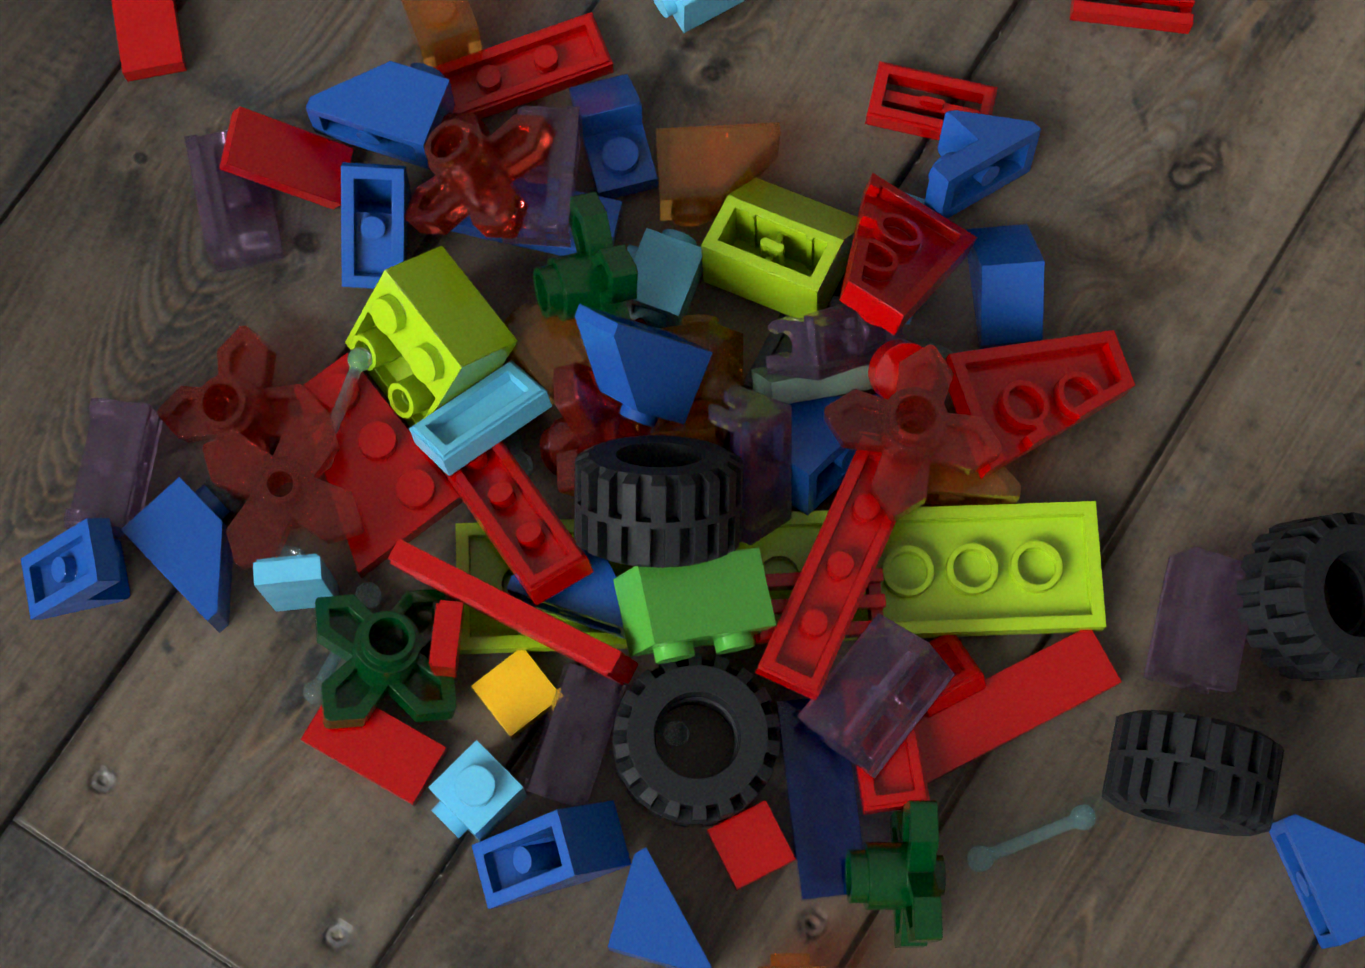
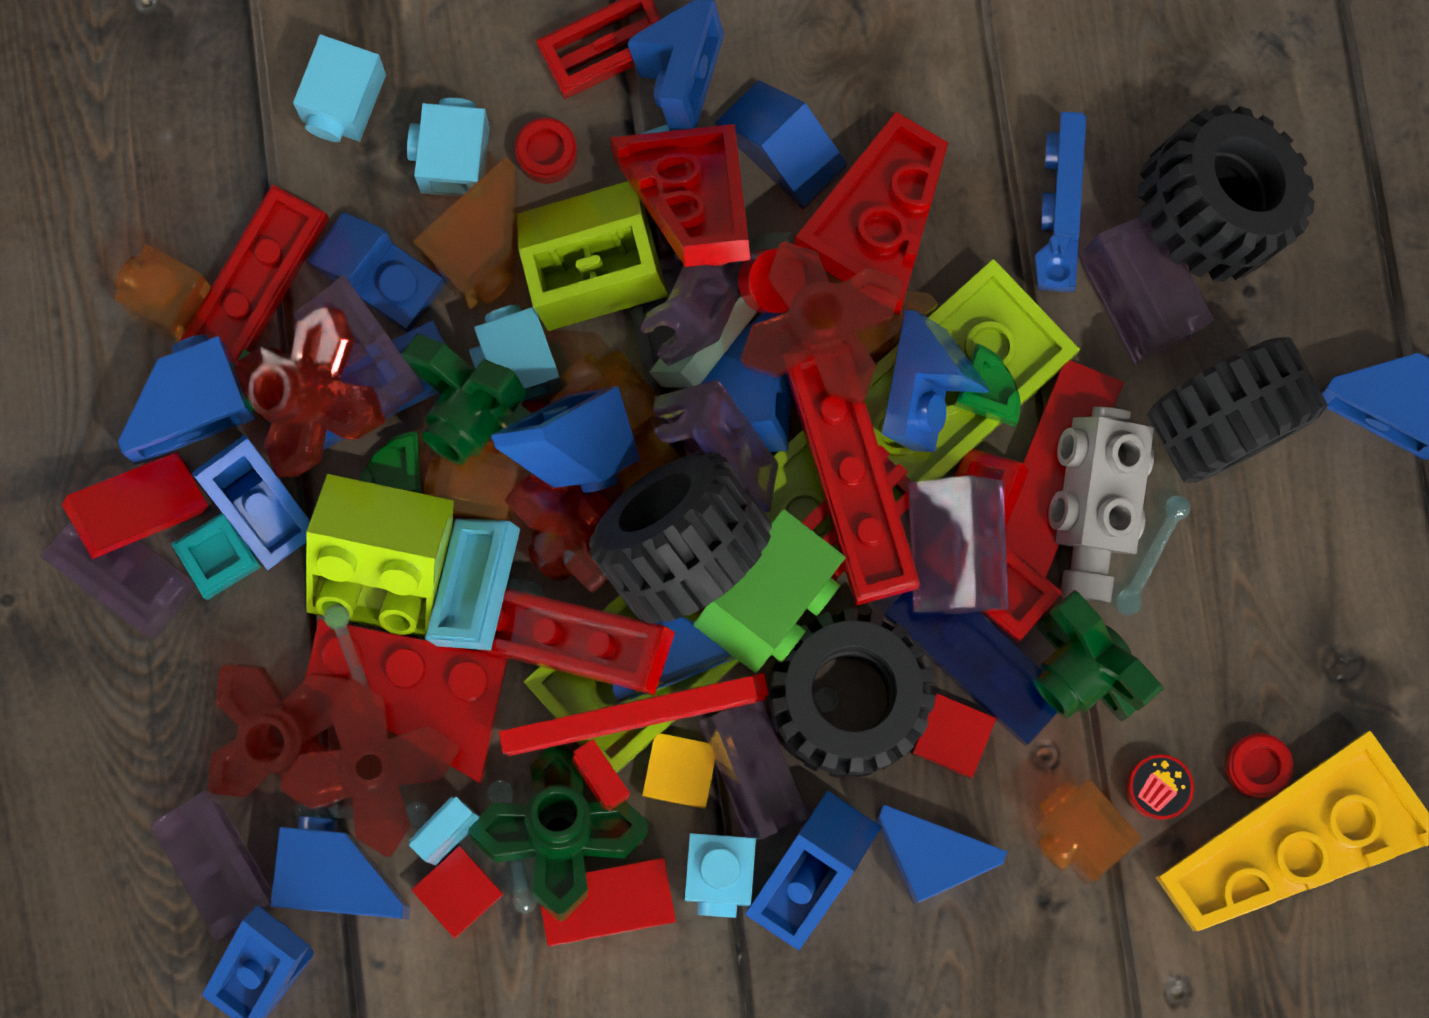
camera: 40 degrees left, 5 degrees up
(270, 642) = (457, 892): none -> red tile
(312, 247) = (215, 556): none -> teal tile
(504, 287) = (397, 464): none -> green tile
(746, 84) = (449, 147): none -> medium azure brick
(818, 148) = (546, 150): none -> red tile
(963, 538) = (923, 371): none -> blue slope
(1006, 596) = (1002, 400): none -> green tile
(1028, 740) = (1100, 496): none -> light grey brick
(1186, 508) = (1061, 210): none -> blue hinge

